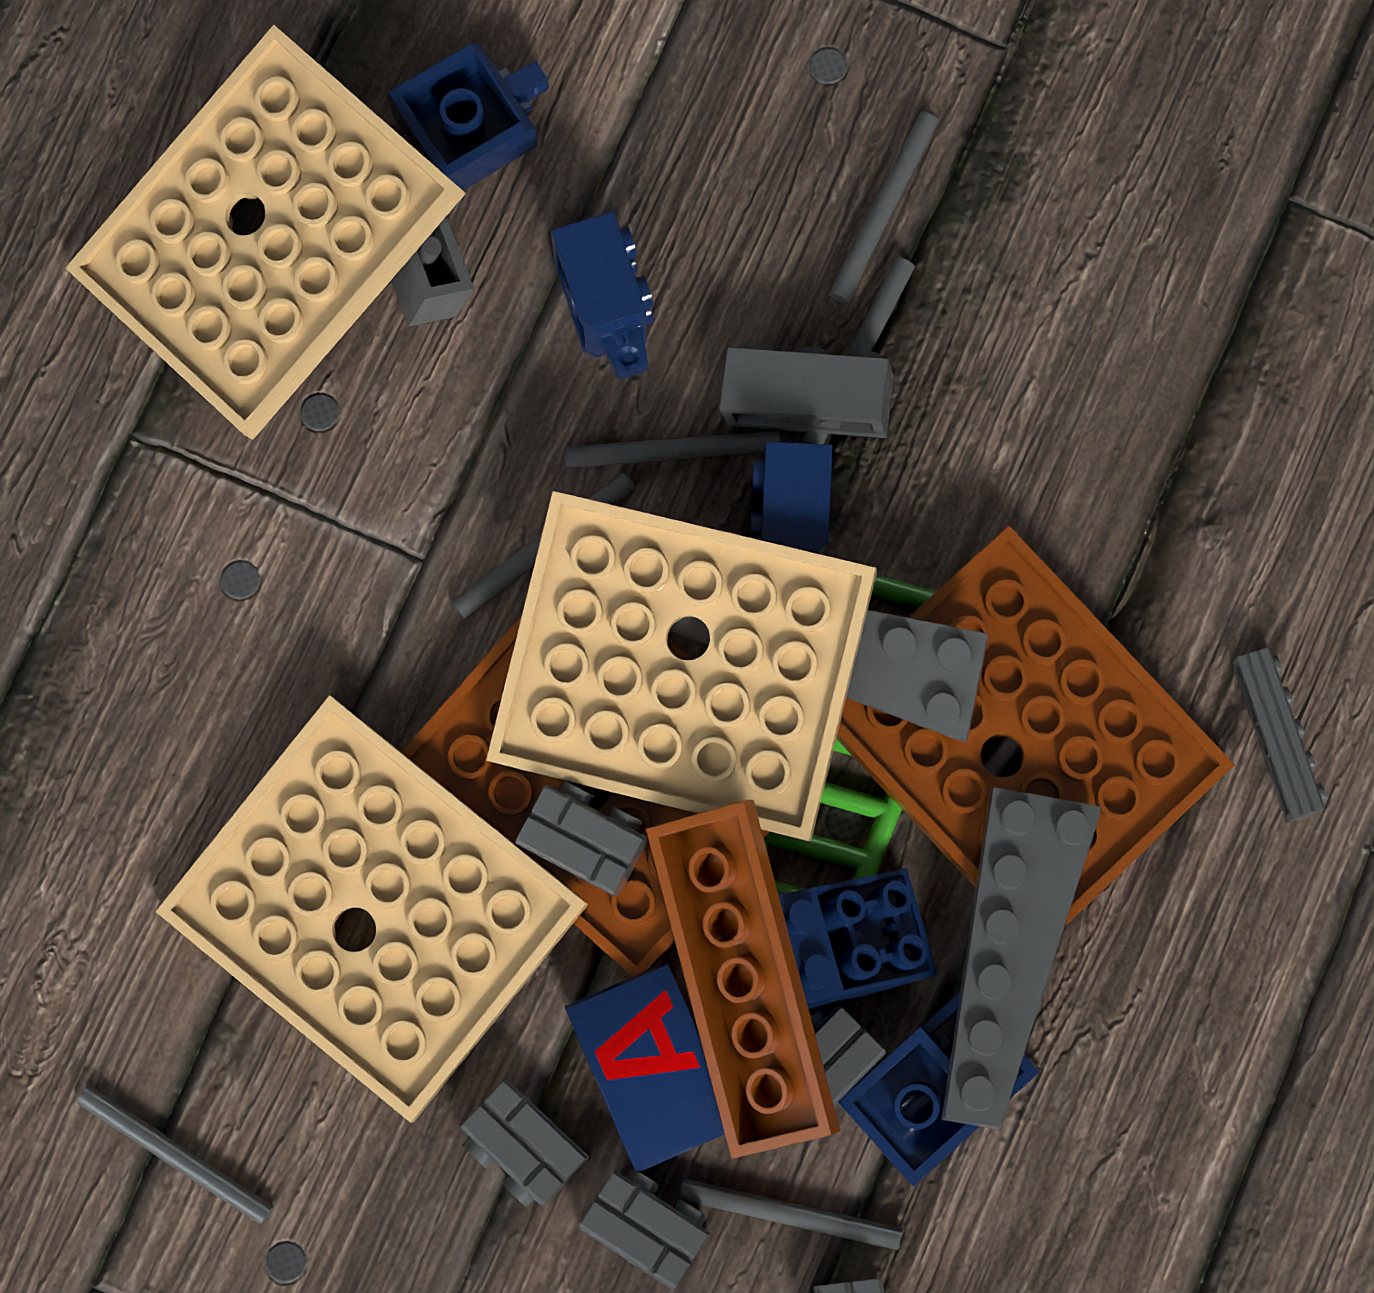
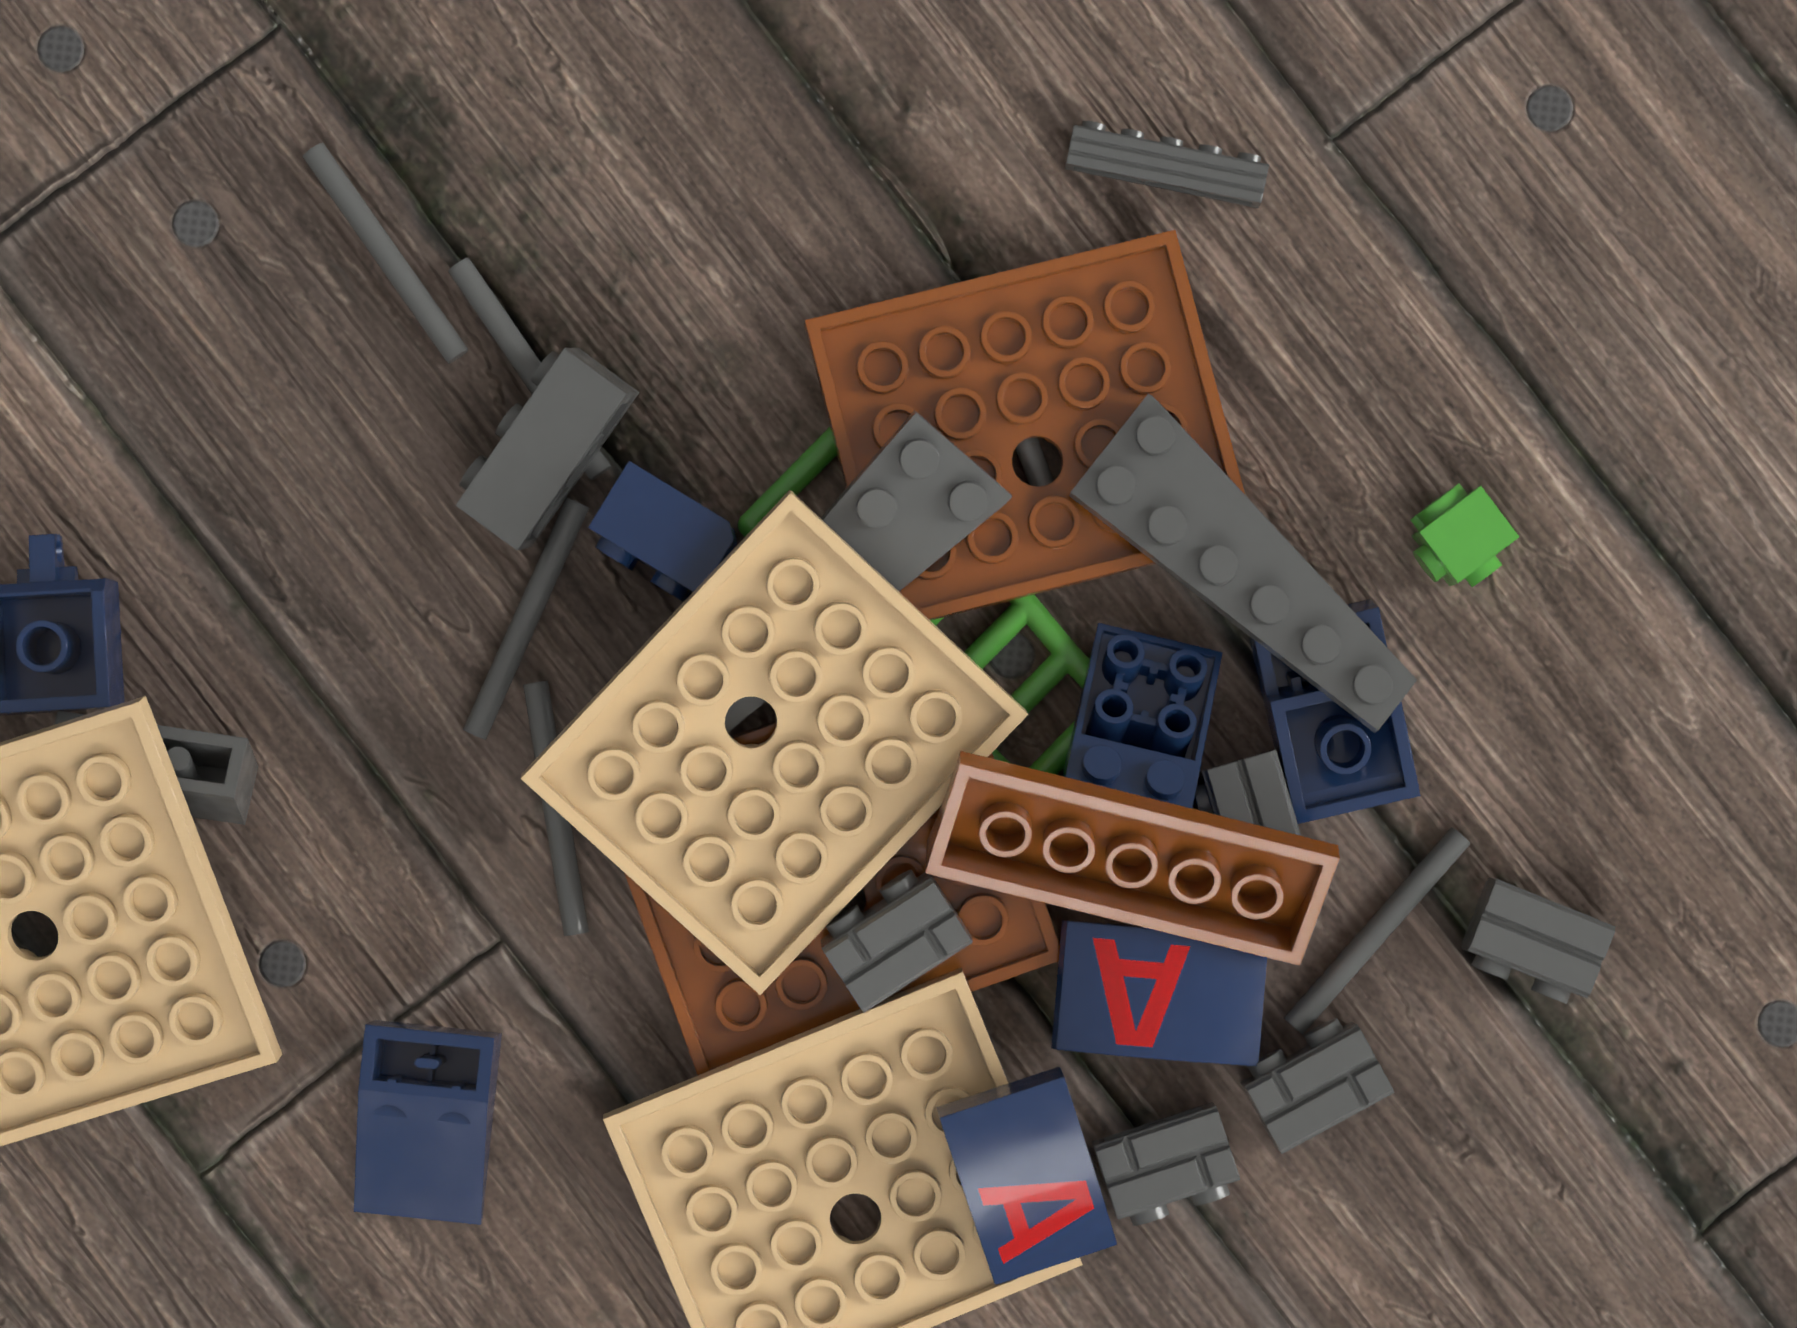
camera: 60 degrees left, 10 degrees up
(257, 571) = (425, 1121): none -> dark blue slope
(455, 1036) = (1027, 1175): none -> dark blue slope
(602, 291) = (326, 604): dark blue hinge -> none
(1129, 1109) = (1461, 536): none -> bright green brick

